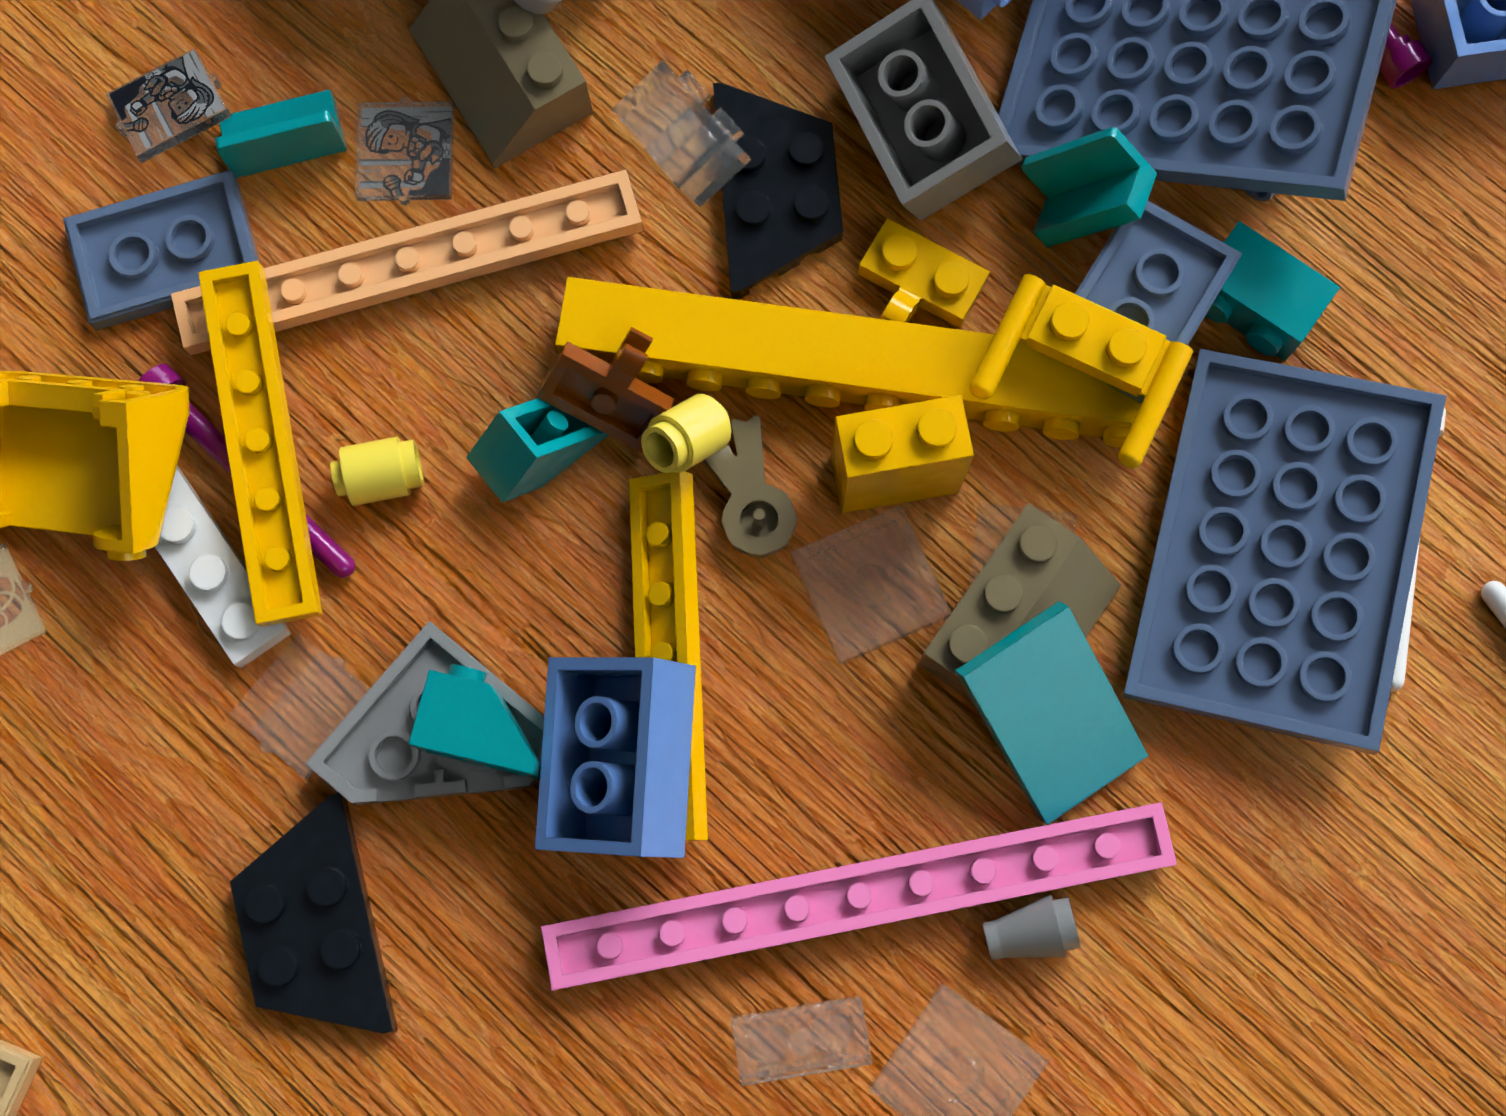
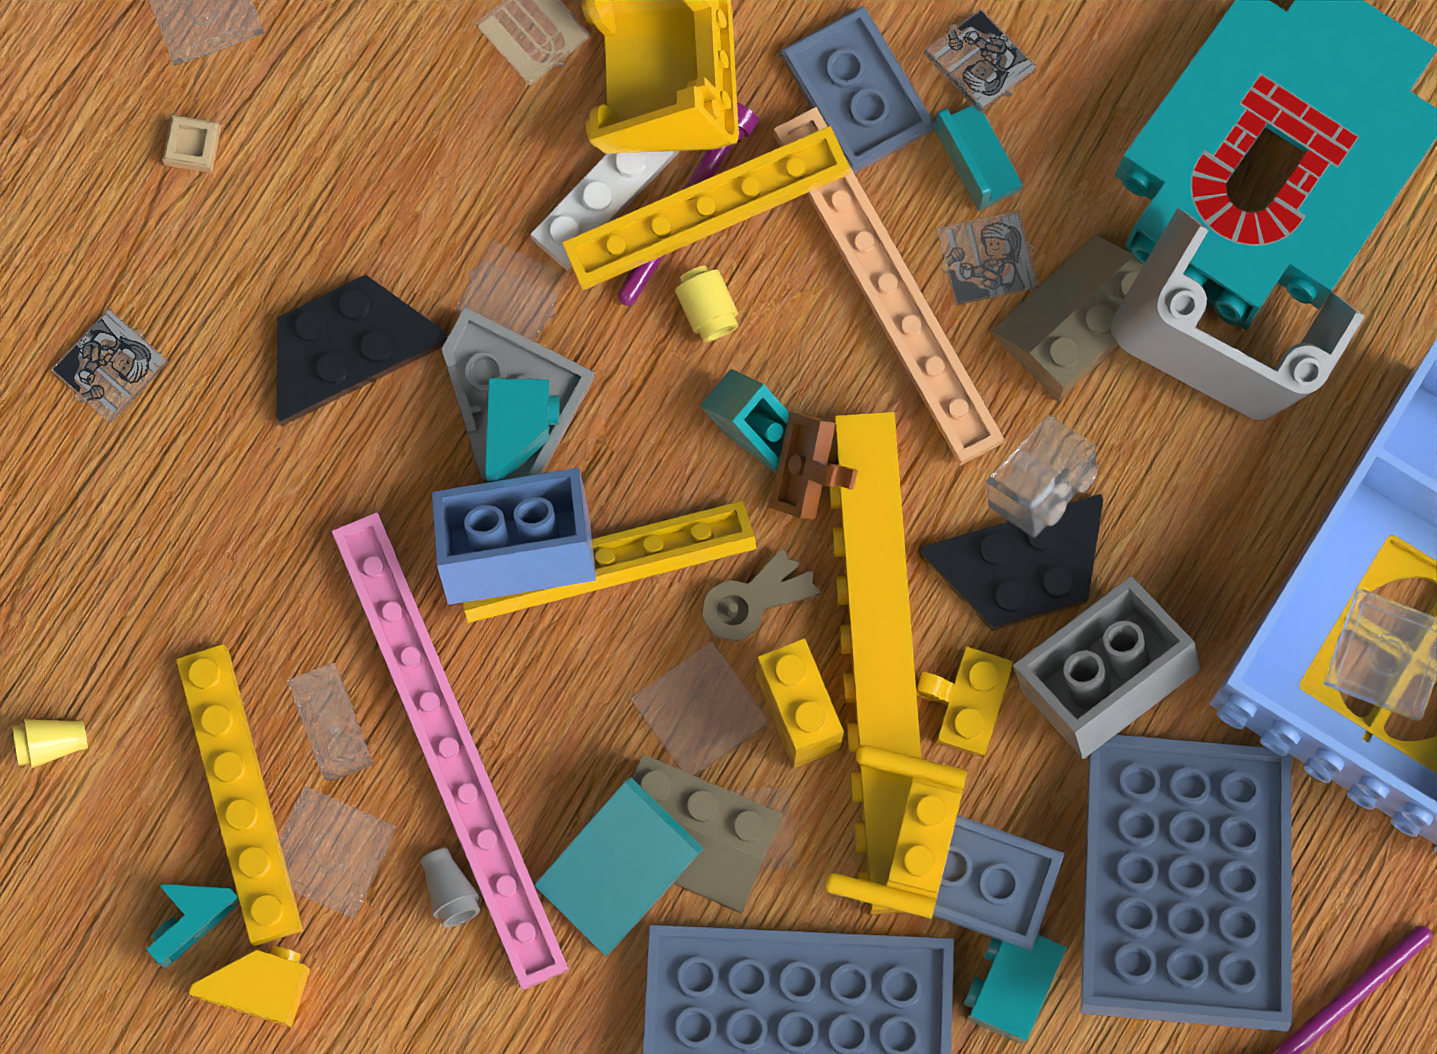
camera: 75 degrees right, 0 degrees up
(686, 434) = (782, 534): light yellow brick -> none
(1089, 185) = (1063, 822): teal panel -> none

